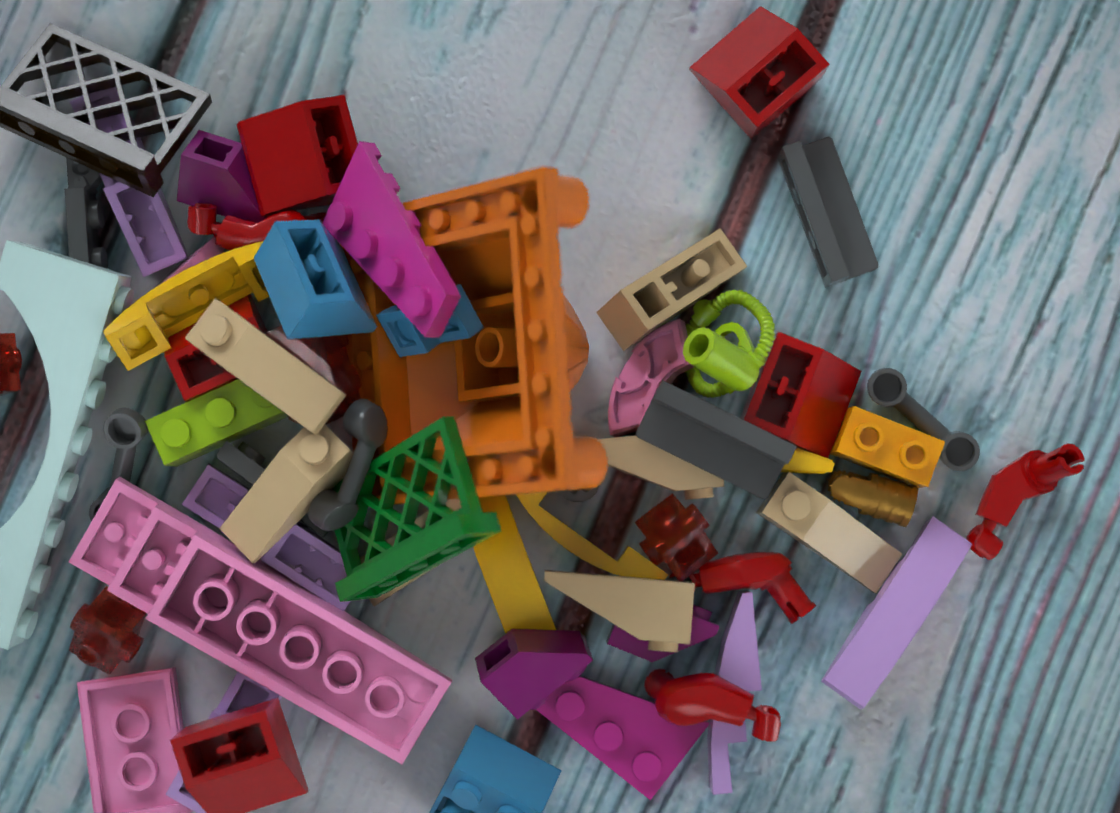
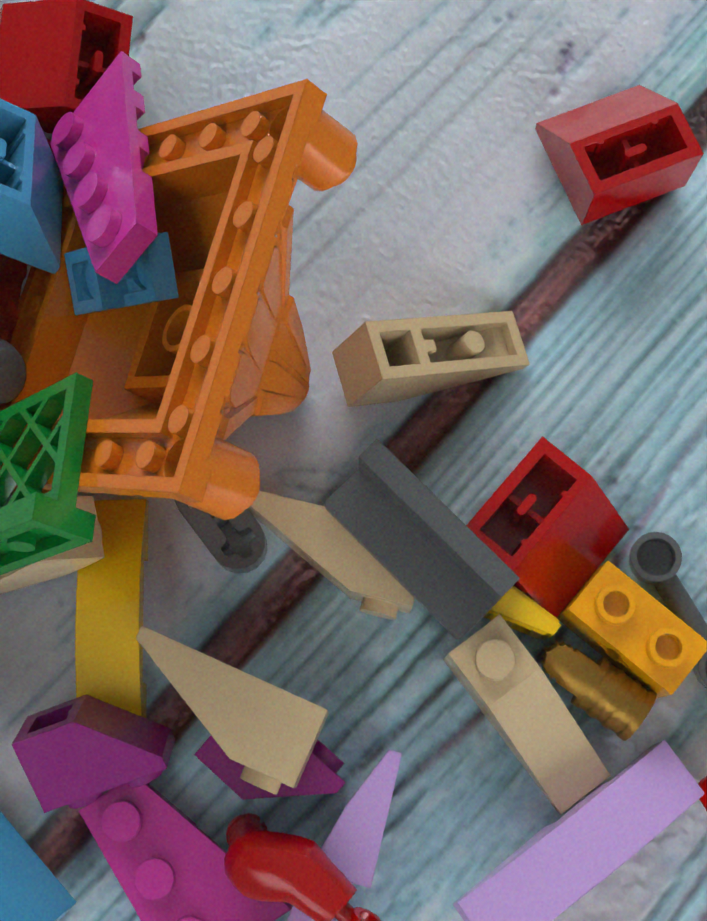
camera: 15 degrees right, 10 degrees down
(628, 564) = (174, 543): yellow slope -> none
(653, 360) = (397, 422): bright pink tile -> none
(668, 530) = (331, 650): clear red brick -> none
(713, 354) = (460, 438): lime piece -> none
(756, 571) = (414, 730): red arm -> none
(827, 210) = (645, 332): dark grey panel -> none

